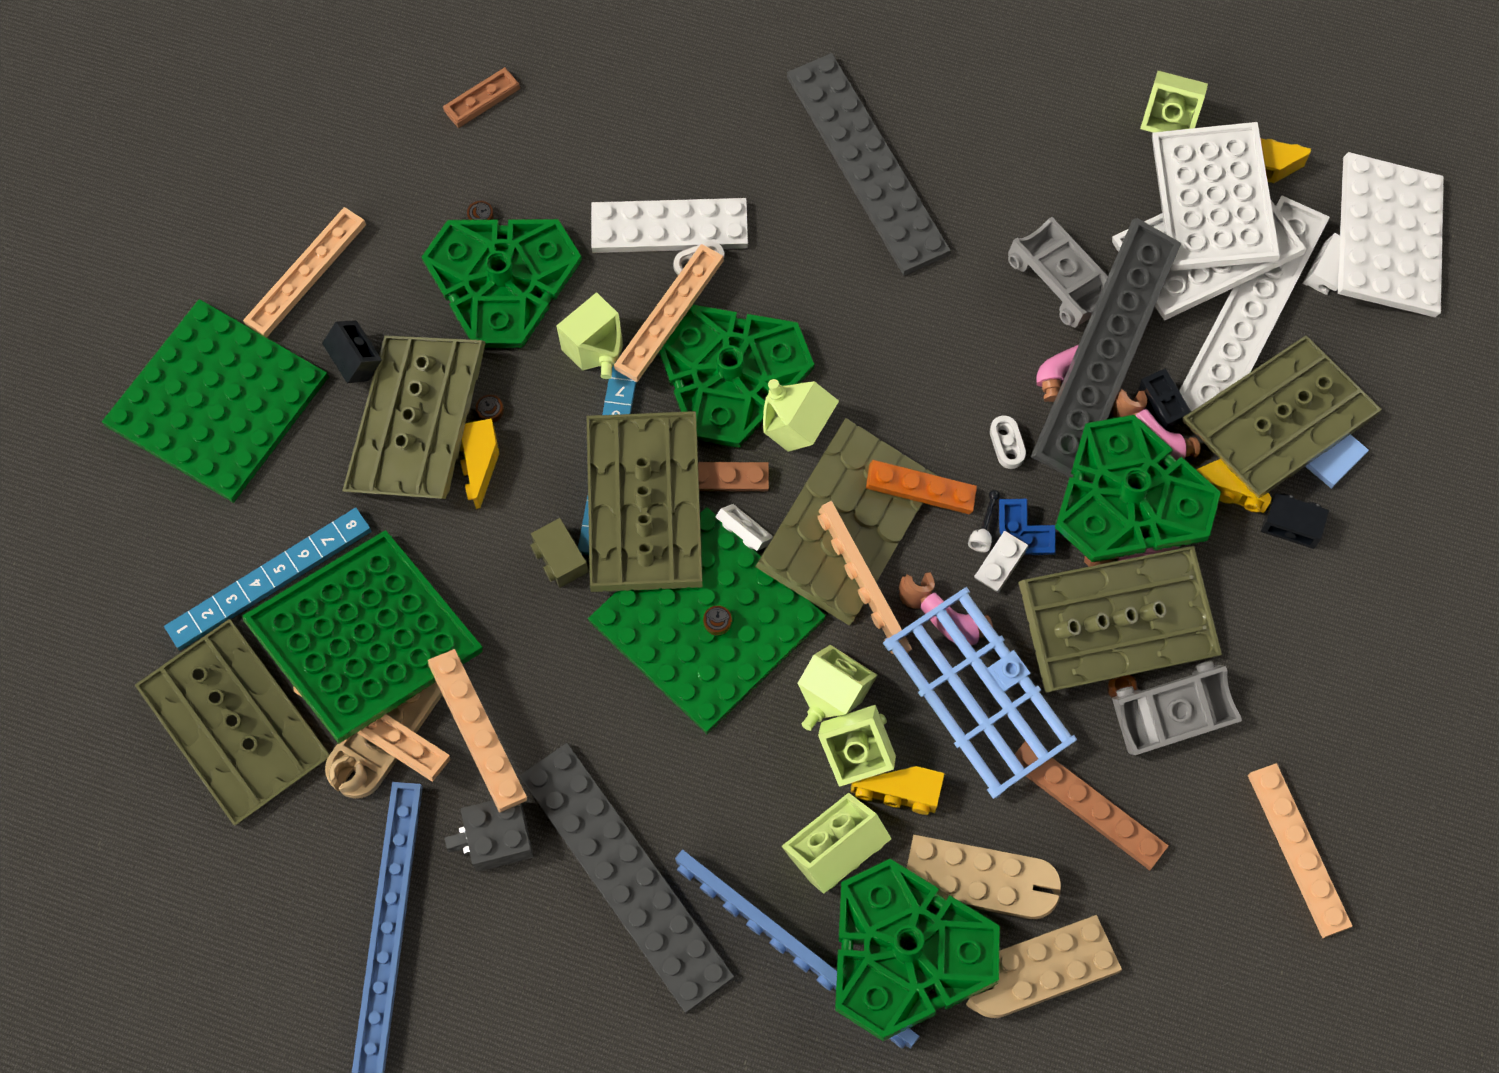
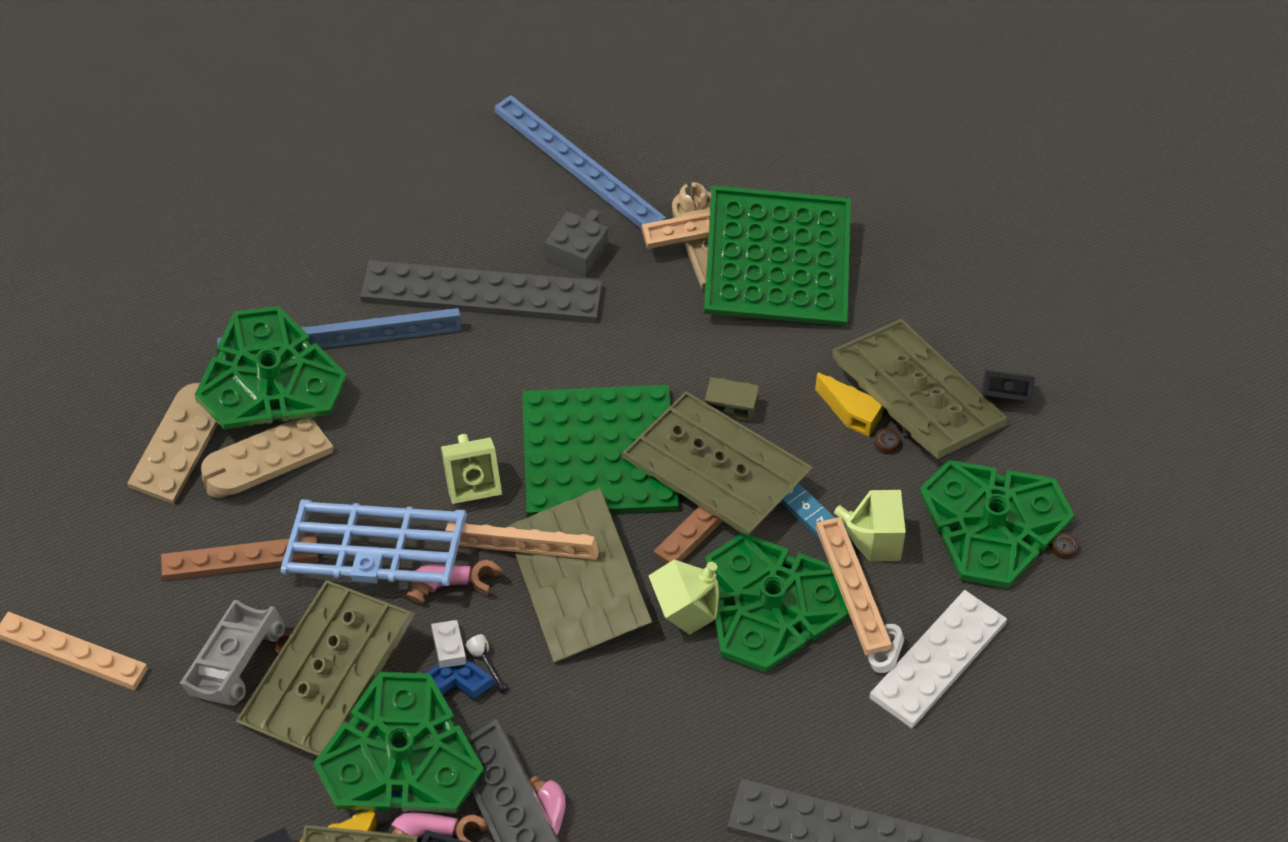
camera: 130 degrees right, 15 degrees down
(215, 400) = (1047, 302): green plate -> none
(232, 721) = (797, 167): olive piece -> none
(267, 579) = (876, 250): dark azure tile -> none
(304, 272) = (1109, 409): light nougat plate -> none
(477, 731) = (647, 261): light nougat plate -> none
(481, 97) = (1180, 621): nougat tile -> none
(717, 620) = (586, 443): tile -> none
(737, 521) = (638, 513): white plate -> none
(837, 842) = (375, 401): yellowish green slope -> none
(857, 745) = (417, 448): yellowish green piece -> none
(907, 787) = (363, 465): yellow slope -> none
(921, 487) = (553, 637): orange plate -> none
(1009, 443) = (532, 727): white plate -> none

